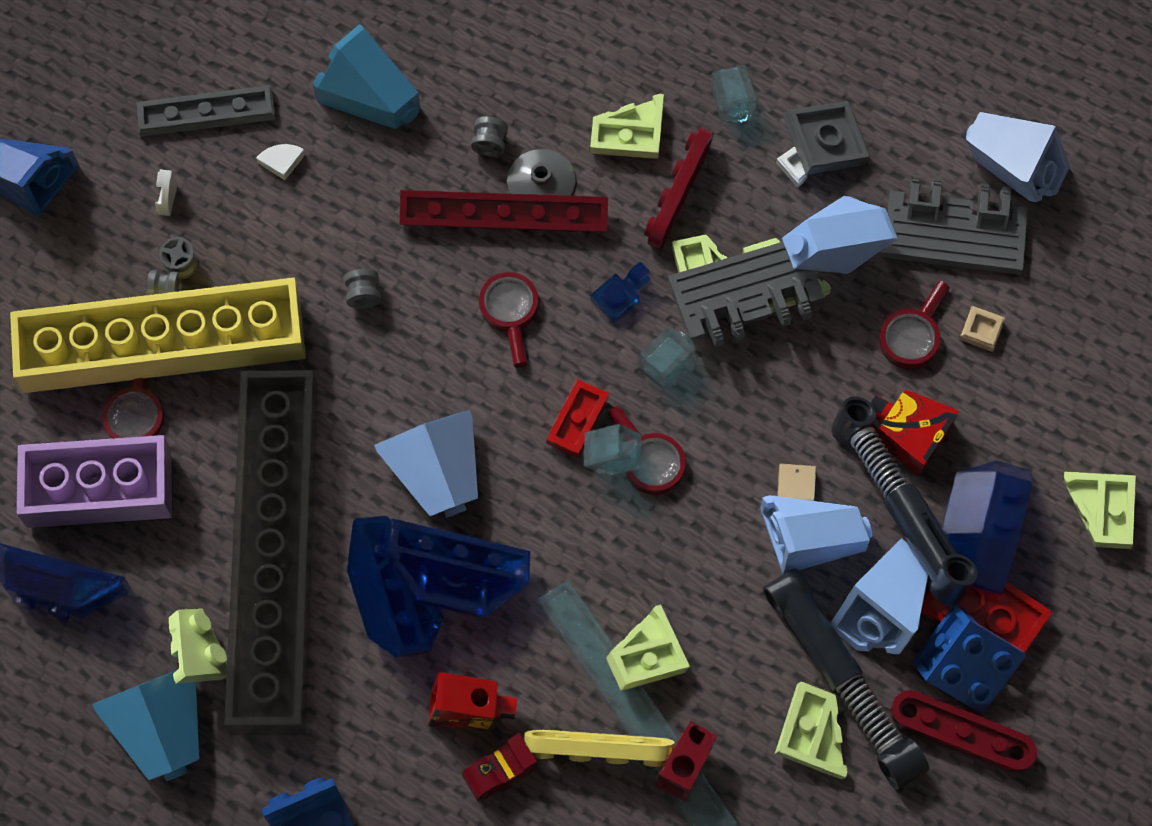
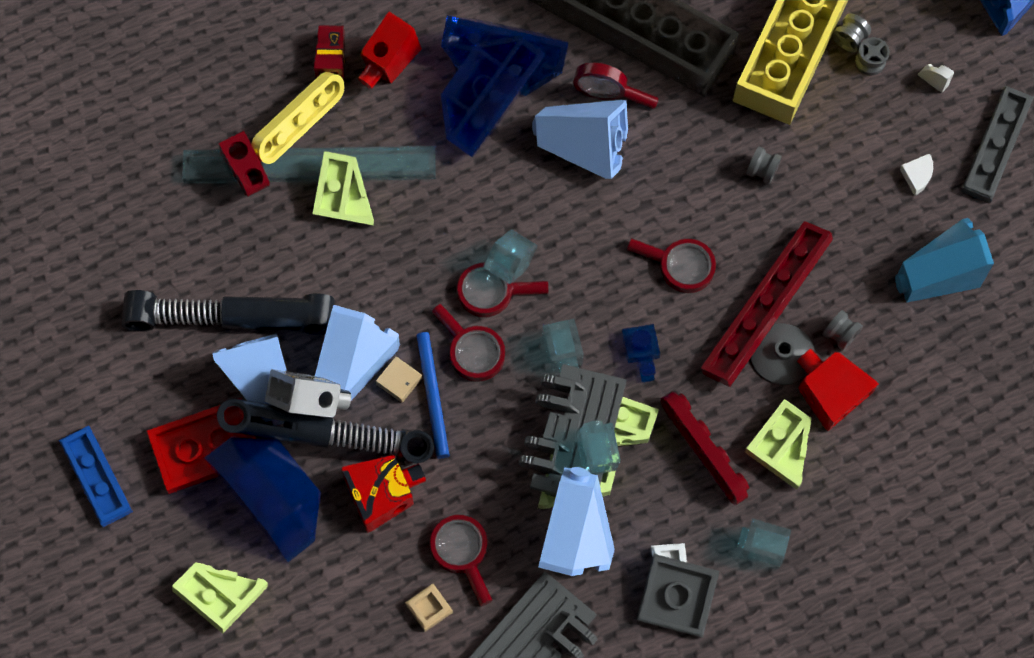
camera: 120 degrees right, 0 degrees up
(366, 466) = (608, 83): none -> dark red piece
(551, 114) = (833, 386): none -> red torso
(577, 417) = (557, 255): red plate -> none
(721, 434) = (475, 351): none -> piece
(756, 252) = (598, 447): none -> clear light blue brick
(788, 446) = (432, 395): none -> blue bar
(812, 731) = (206, 268): yellowish green wing -> none
(891, 525) = (306, 394): none -> light grey torso
(963, 731) = (130, 369): dark red plate -> none
(967, 659) = (175, 390): blue bracket -> none
(1082, 694) = (95, 476): none -> blue tile

